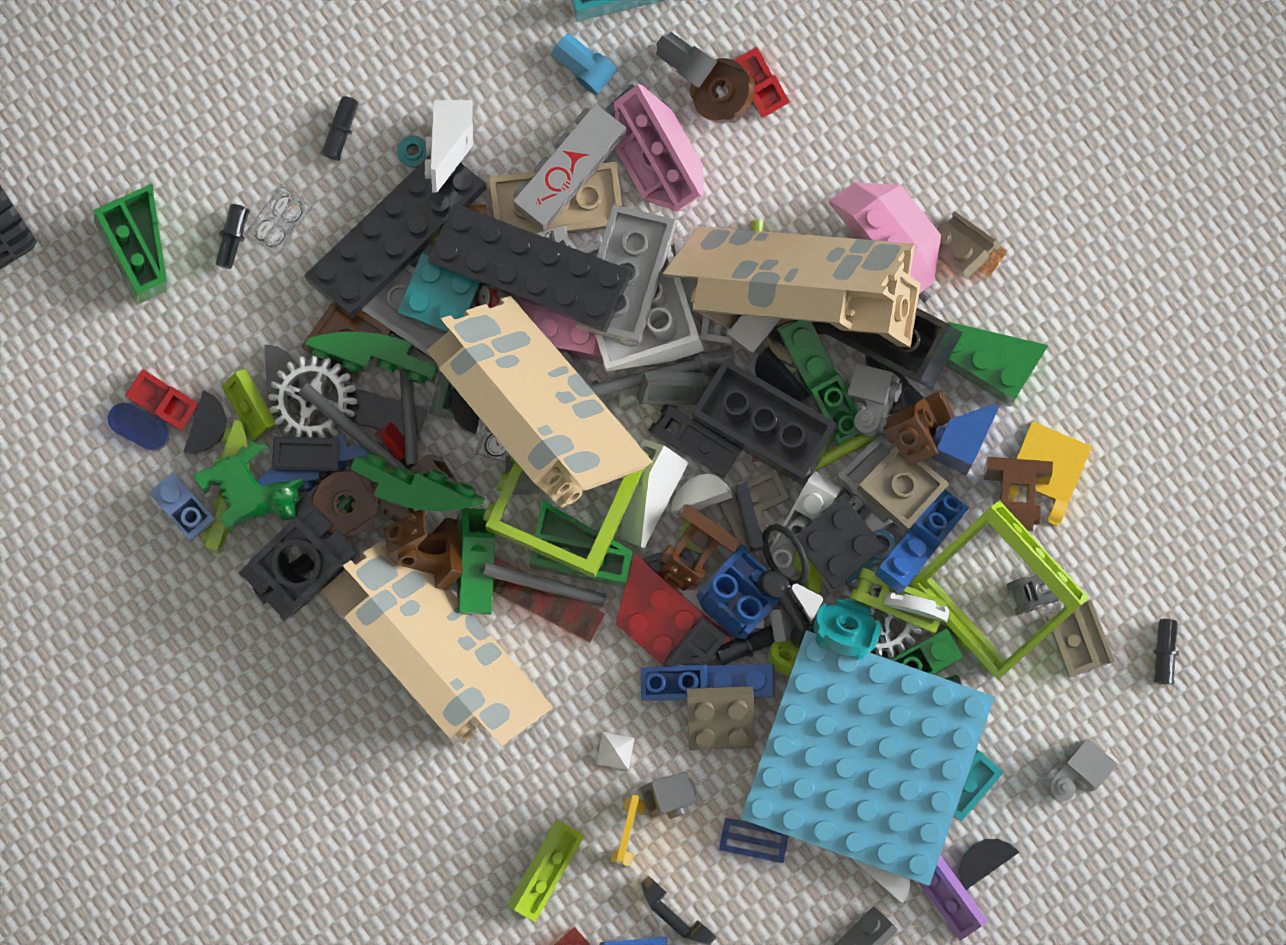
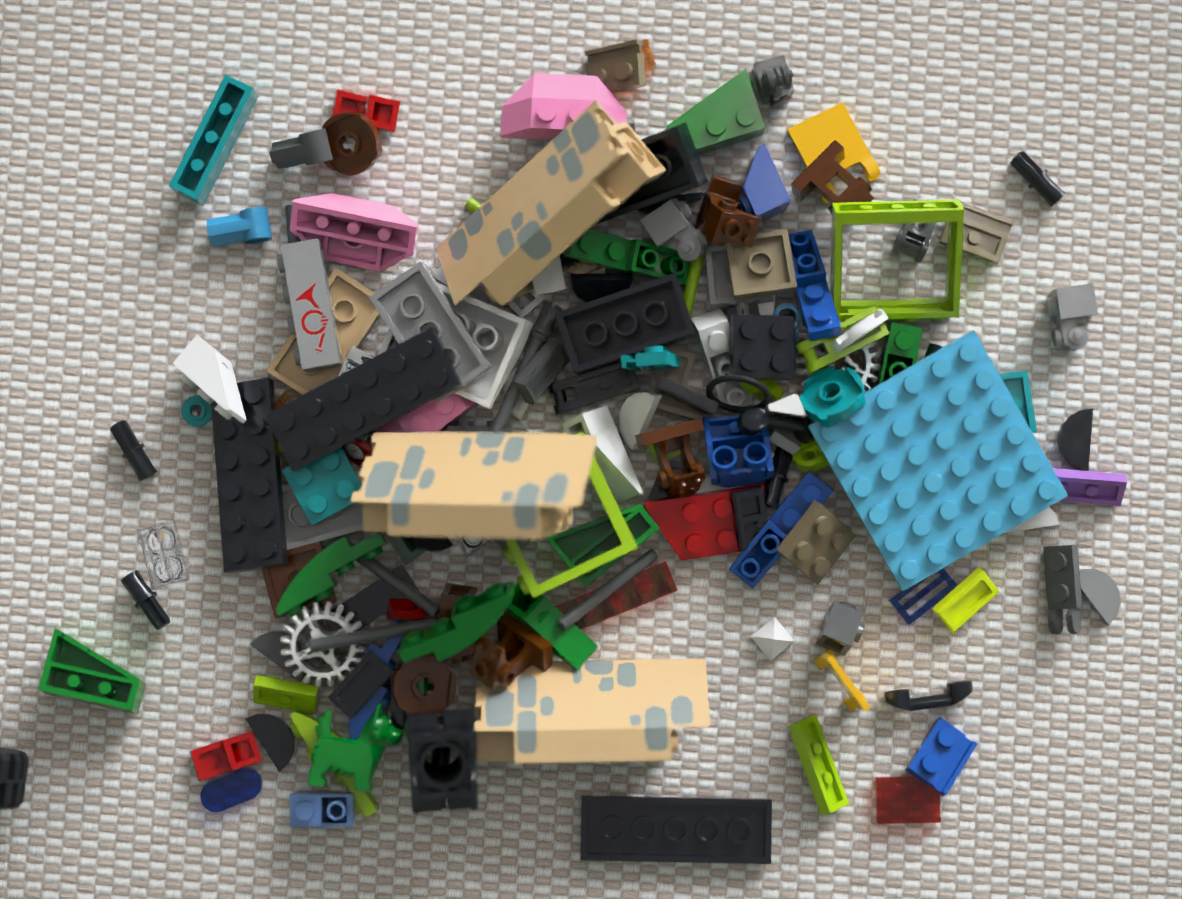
camera: 50 degrees left, 5 degrees up
(398, 800) = (676, 829): none -> black plate
(753, 462) = (652, 359): none -> teal plate
(777, 878) = (965, 600): none -> neon yellow tile
(1059, 377) = (773, 81): none -> dark grey brick

